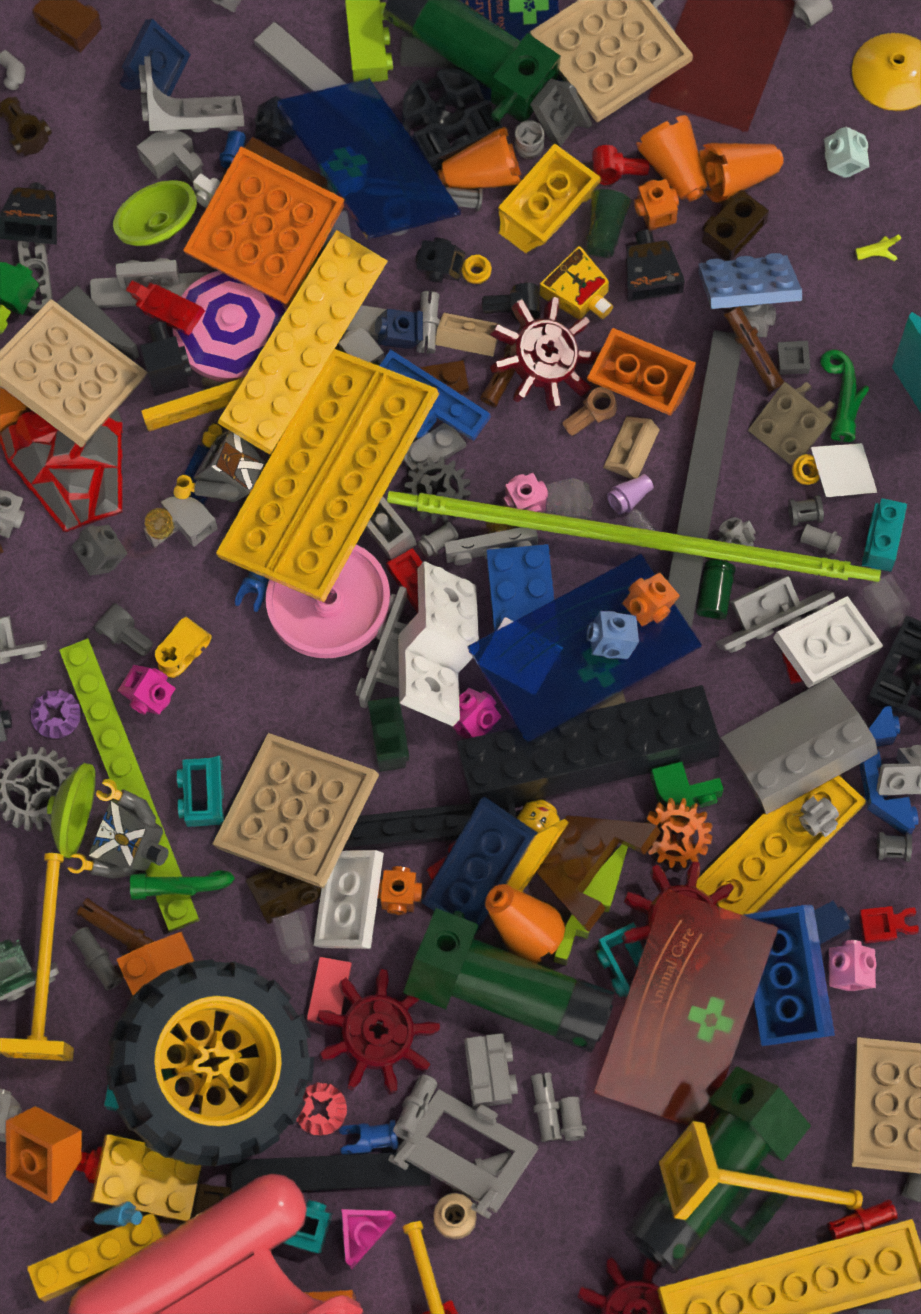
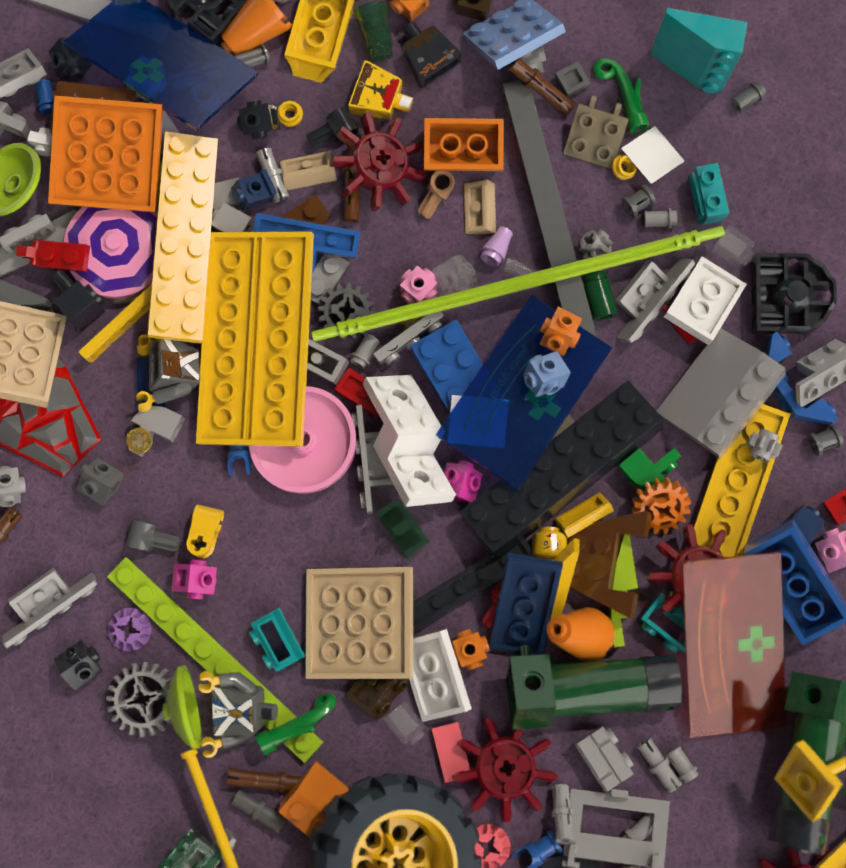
camera: 30 degrees left, 10 degrees up
(590, 807) = (584, 514): none -> yellow tile

